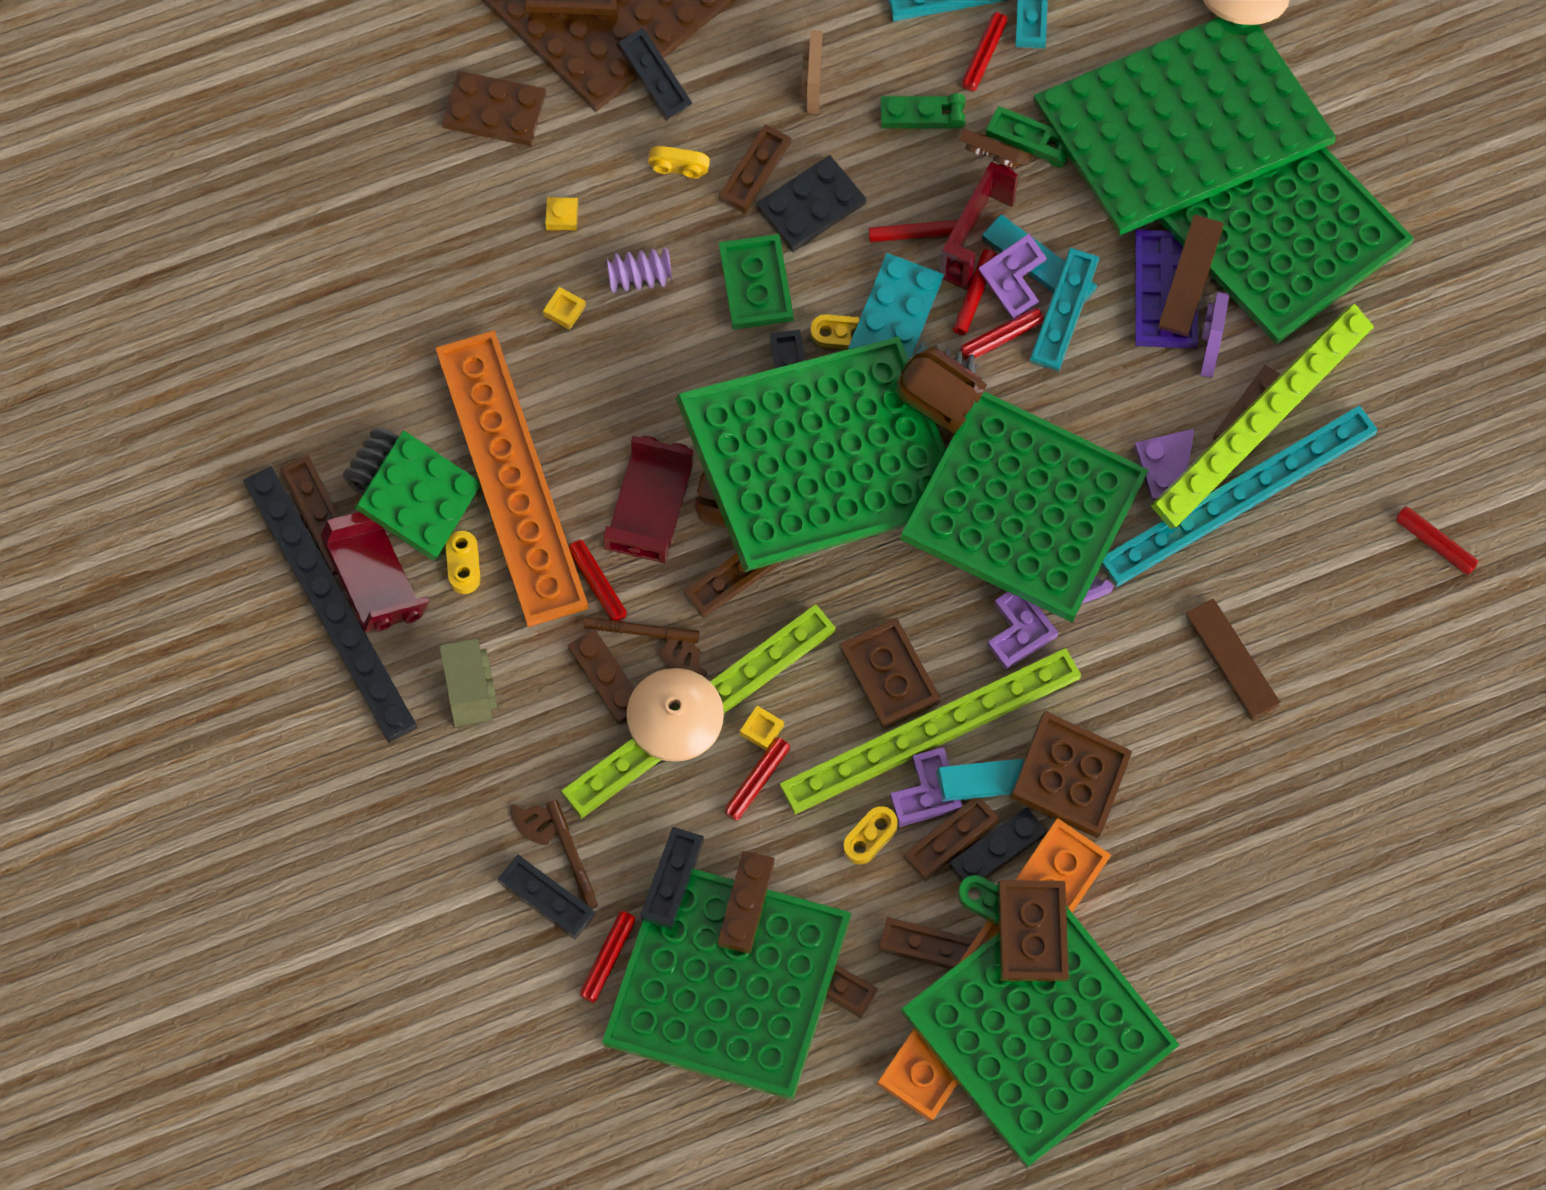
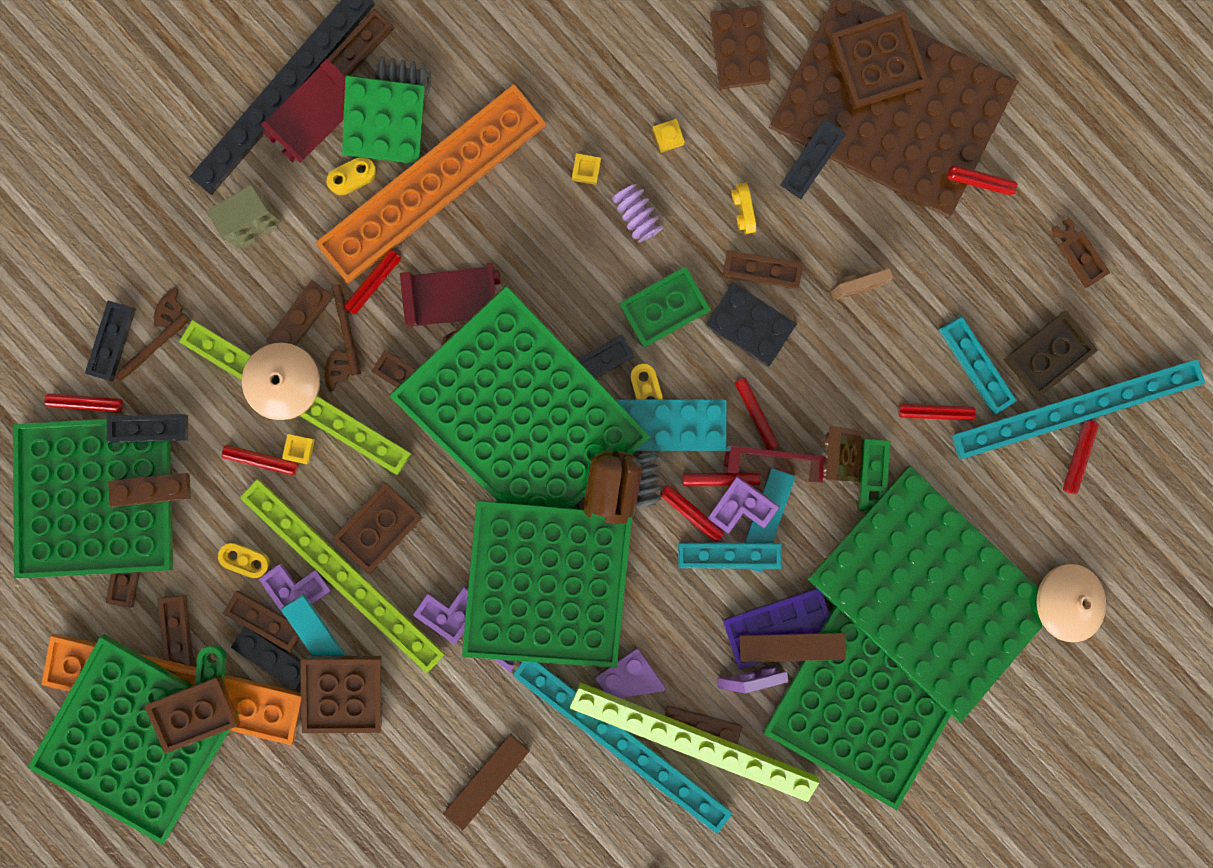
camera: 70 degrees right, 20 degrees up
(922, 112) = (864, 382): green plate -> none

